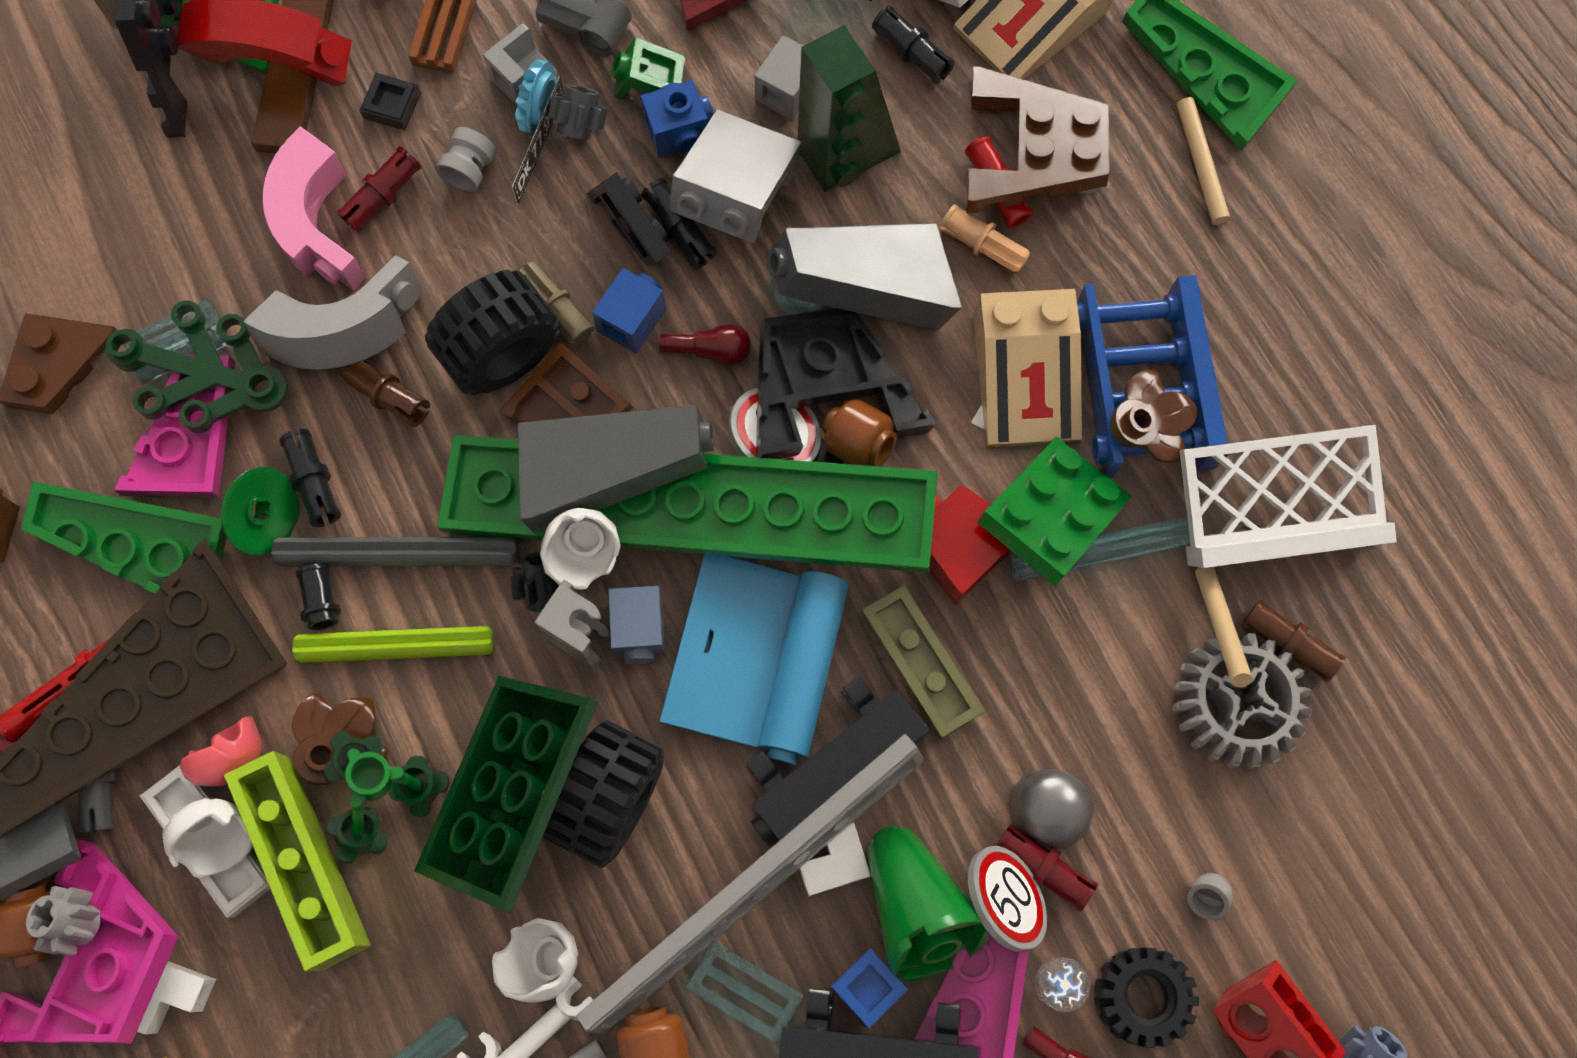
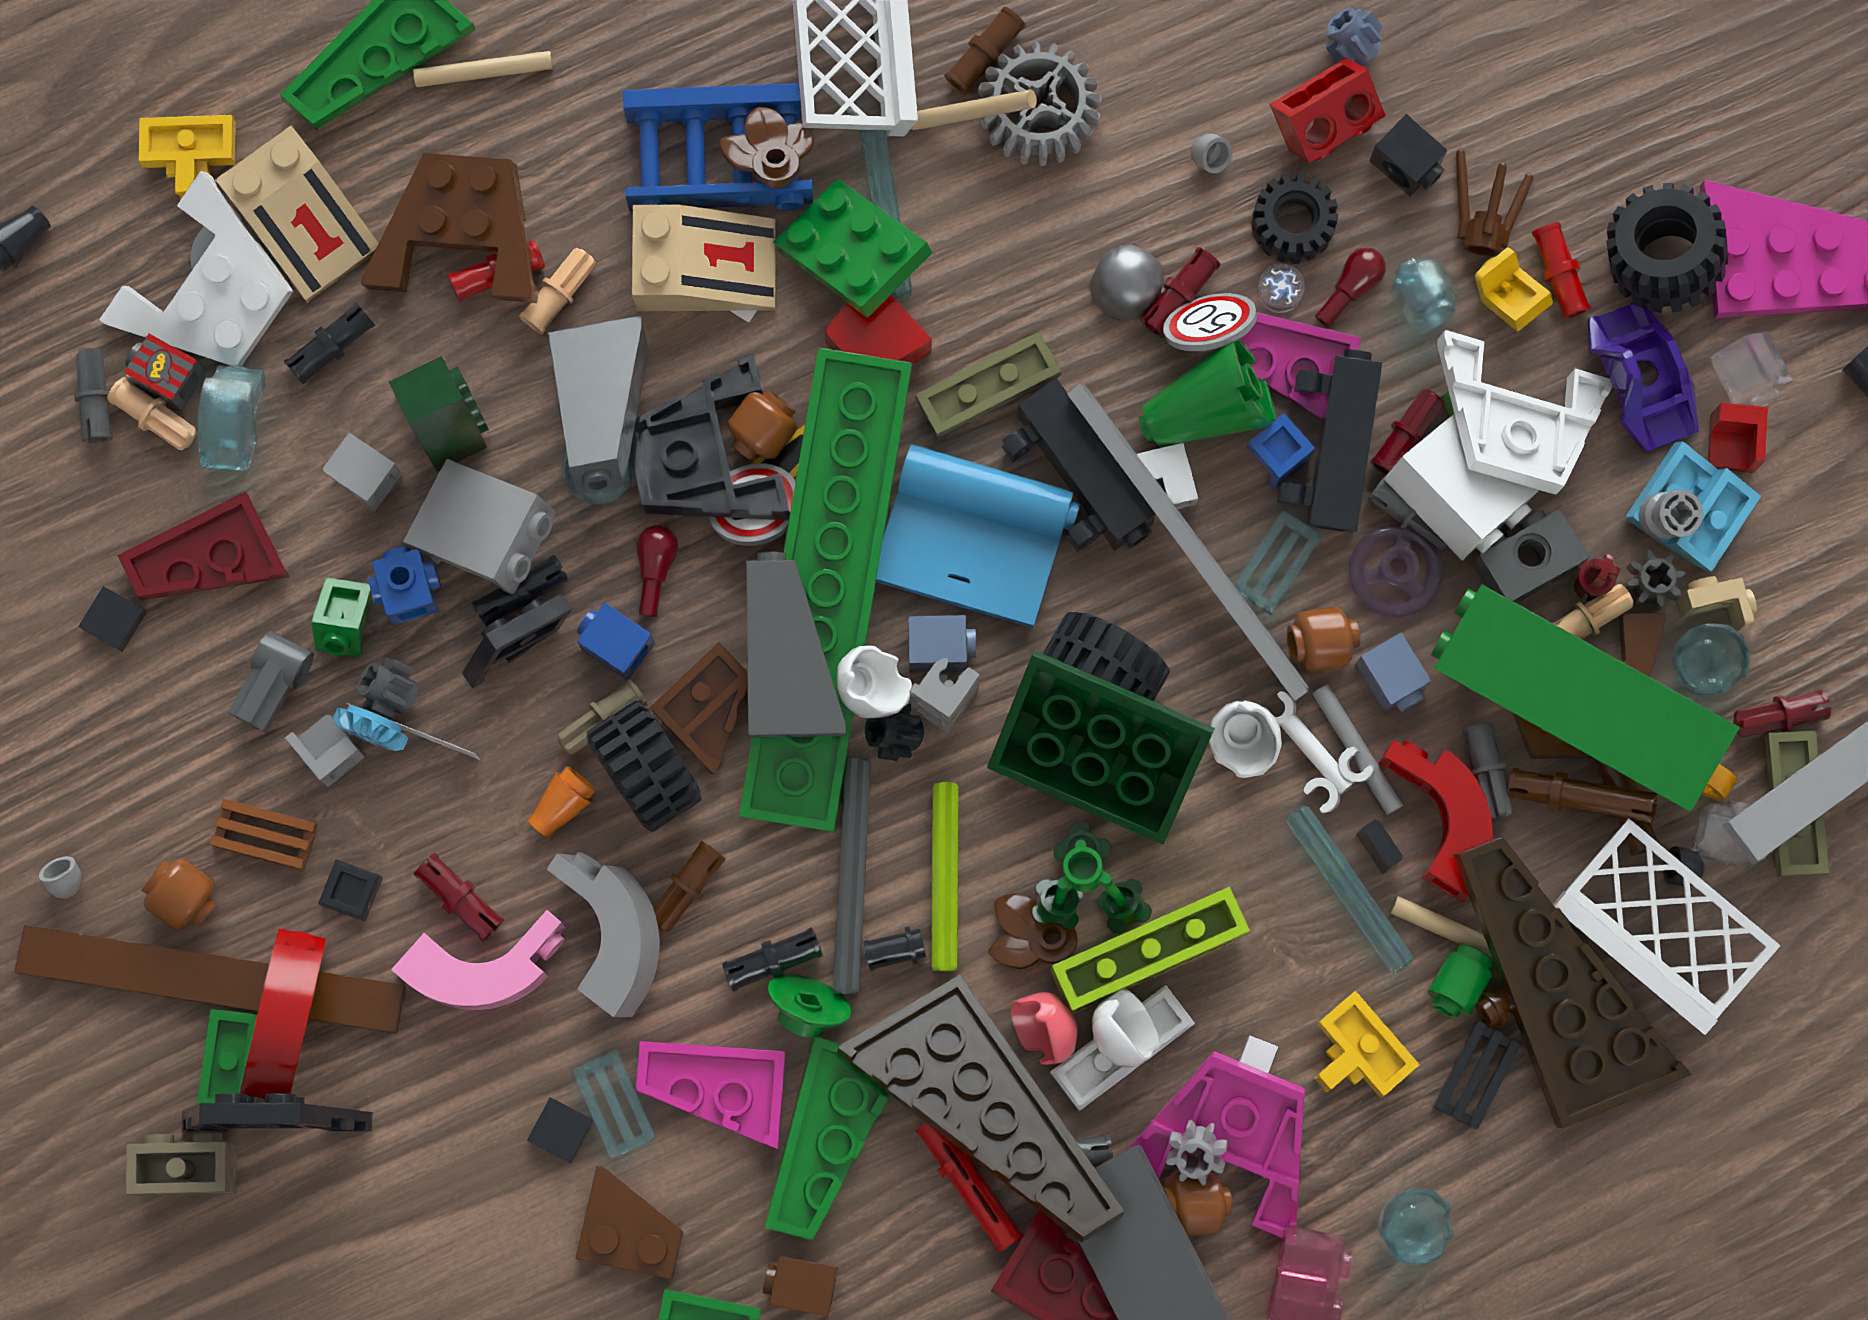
camera: 85 degrees left, 5 degrees up
(152, 294) = (560, 1130): none -> black tile
(200, 373) = (656, 1062): dark green plant -> none
(464, 266) = (563, 799): none -> orange cone
(465, 159) = (428, 803): light grey wheel -> none

